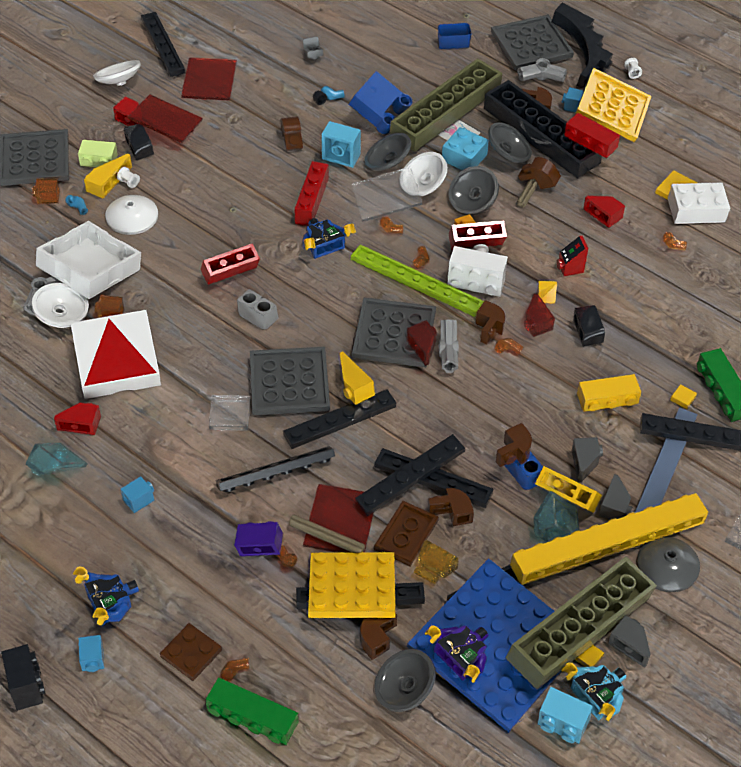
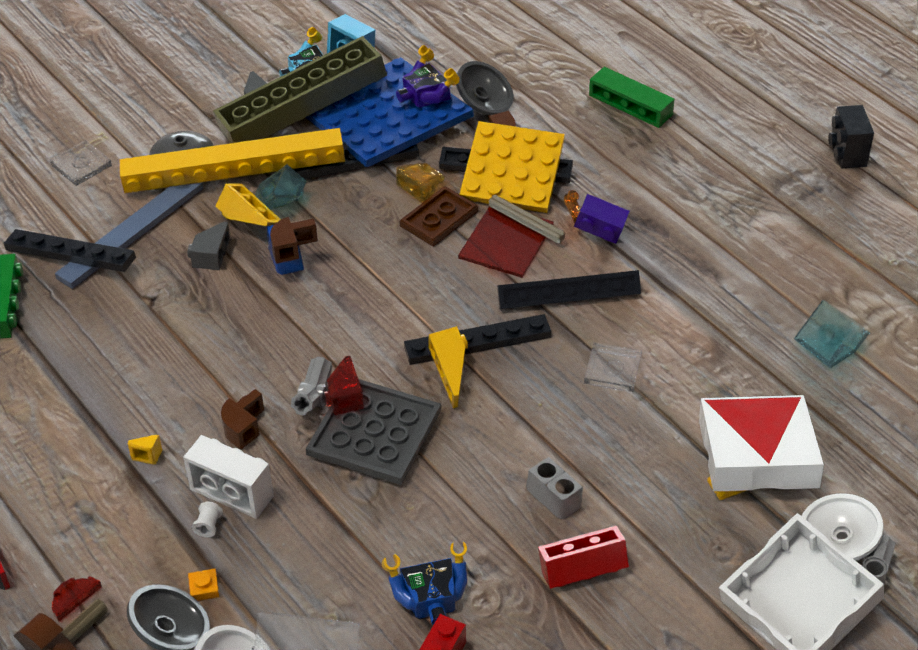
camera: 165 degrees left, 5 degrees down
(79, 418) = (806, 379): red slope -> none
(91, 653) = (784, 157): dark azure brick -> none
(106, 594) = (768, 196): torso -> none
(109, 306) = (765, 523): clear orange brick -> none
(137, 494) = (733, 286): dark azure brick -> none
(191, 651) = (684, 152): reddish brown plate -> none
(232, 667) = (645, 134): clear orange arm -> none
(289, 381) = (530, 389): dark grey plate -> none
(390, 227) = (320, 597): clear orange arm -> none
(410, 474) = (415, 251): black plate -> none
(417, 280) = (323, 513): lime tile -> none
(423, 257) = (289, 537): clear orange arm -> none
(438, 480) = (391, 256): black plate -> none
(454, 503) = (380, 226): reddish brown brick -> none
(472, 234) = (199, 541): red brick -> none
(508, 343) = (232, 388): clear orange arm -> none
(538, 317) = (177, 414): clear red slope -> none
(542, 208) = (72, 594): none -> clear red tile
(573, 257) = (82, 479): red slope -> none
(589, 325) = (116, 391): black piece -> none
(609, 393) = (142, 308): yellow brick -> none
(616, 500) = (203, 202): dark grey slope -> none
(683, 396) = (55, 298): yellow tile -> none

